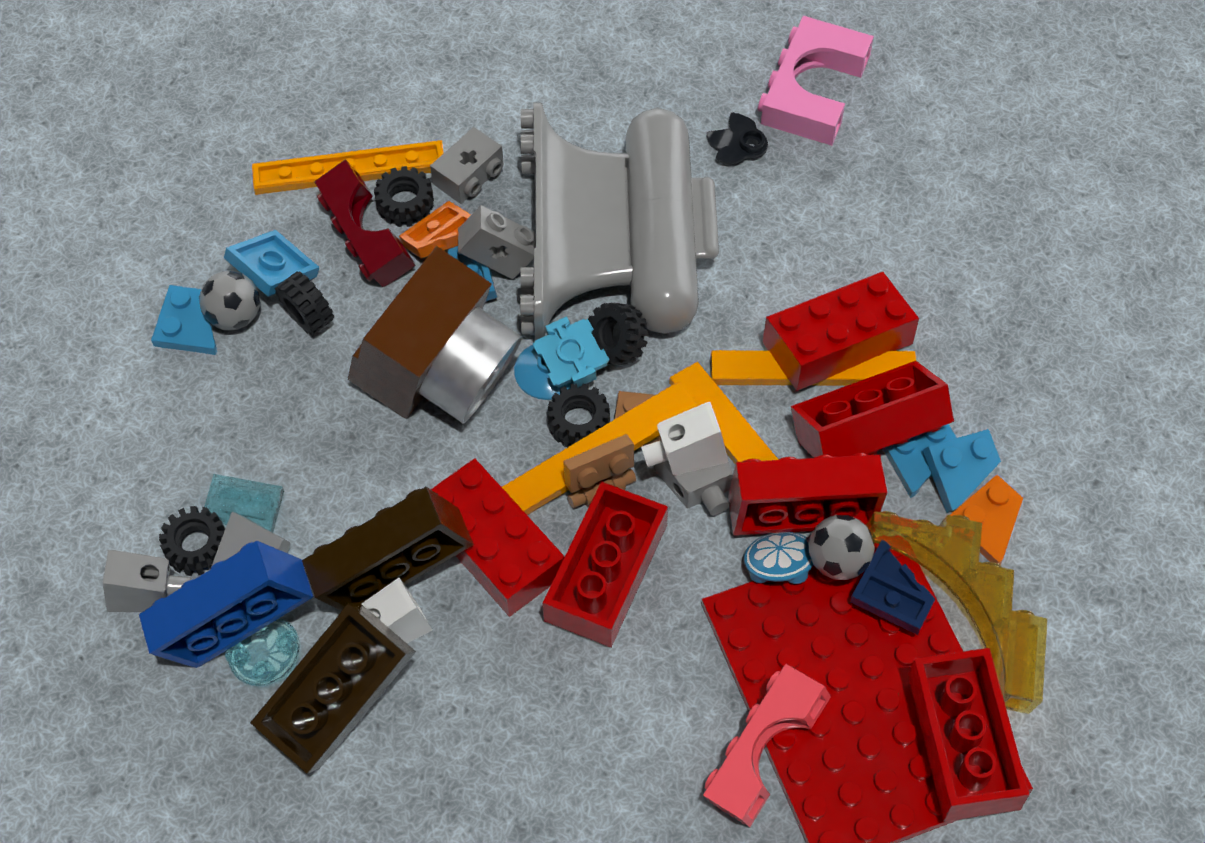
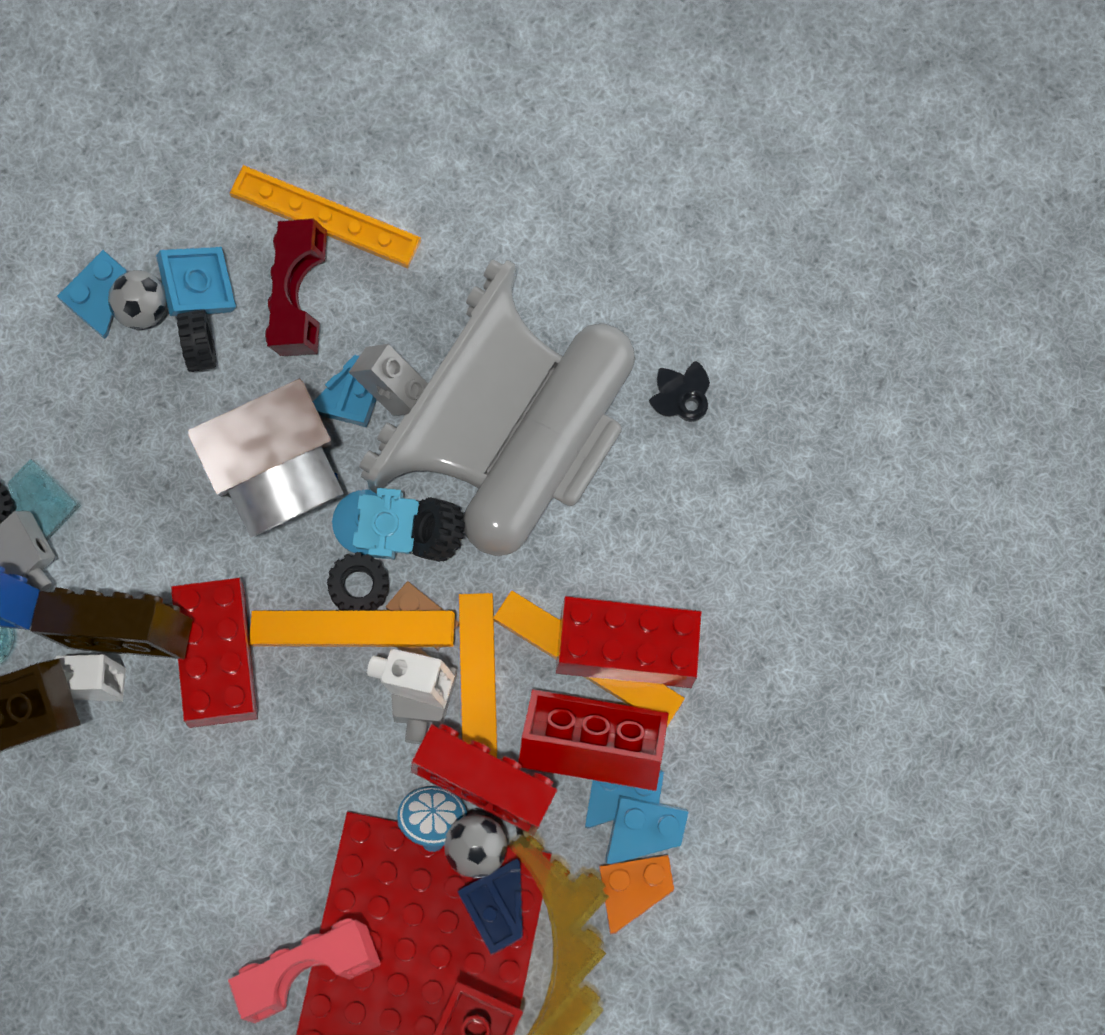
camera: 30 degrees right, 15 degrees up
(404, 181) = (354, 296): black tyre -> none
(435, 230) = (355, 330): orange wing -> none
(467, 165) = (439, 272): light grey brick -> none
(597, 464) = (335, 651): medium nougat plate -> none
(605, 564) = (286, 735): red brick -> none
(812, 46) = (815, 334): bright pink arch -> none

